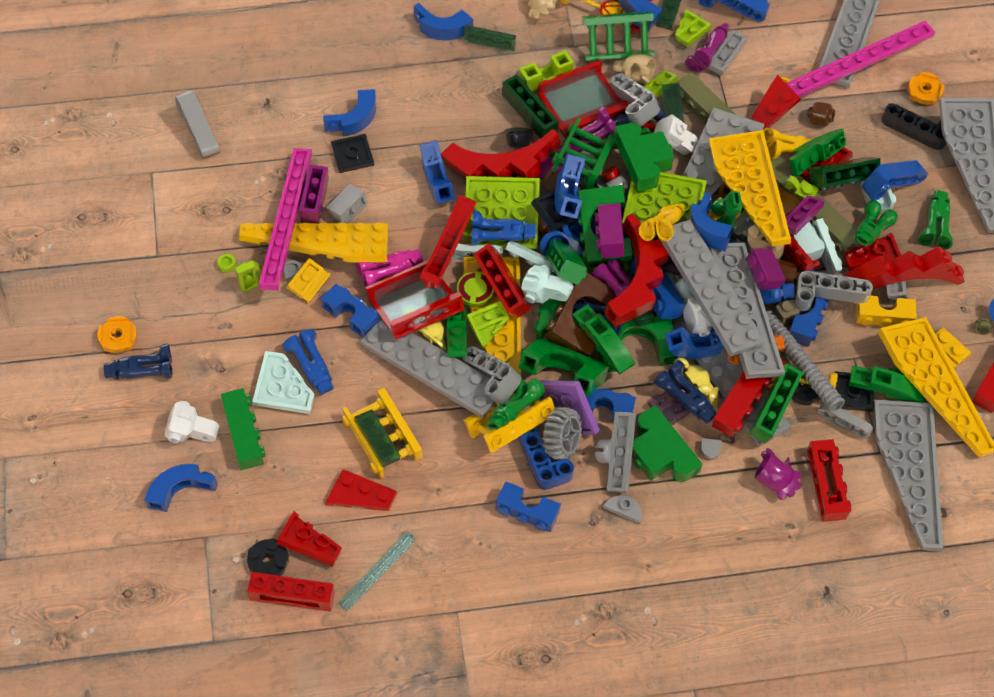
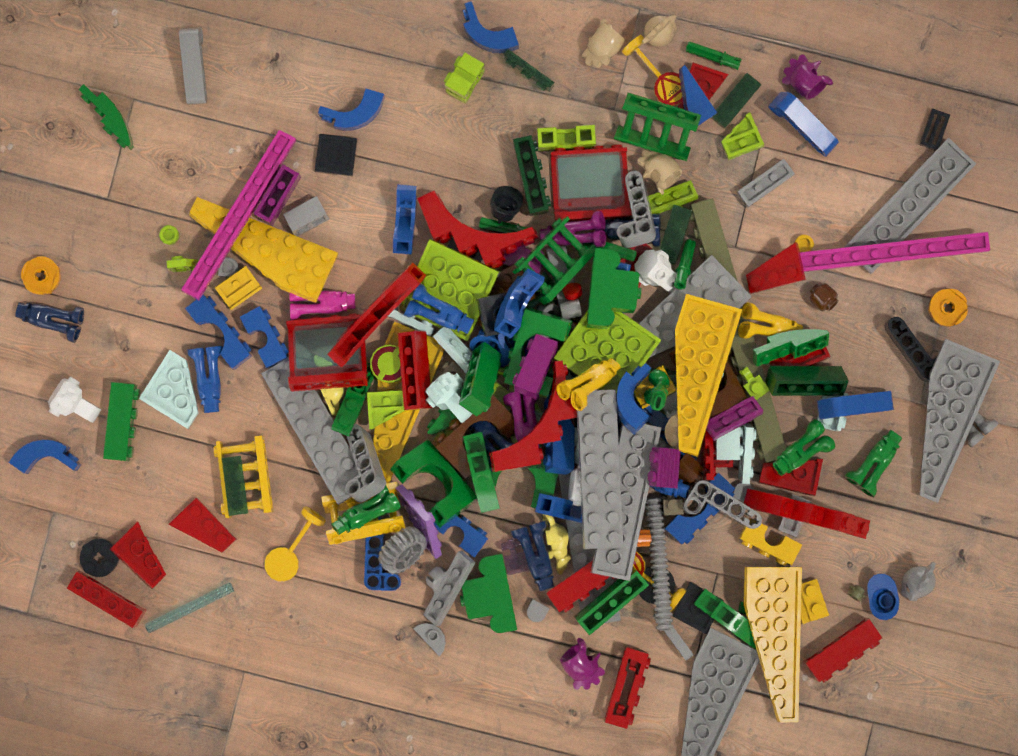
camera: 25 degrees right, 25 degrees up
(139, 188) = (113, 121): none -> green slope
(286, 309) = (204, 312): none -> blue arch
(438, 55) = (464, 78): none -> lime brick
(452, 497) = (282, 562): none -> yellow piece
(541, 516) = (331, 592): blue arch -> none
(694, 126) = (683, 269): none -> green axle
(704, 55) = (757, 165): magenta piece -> none

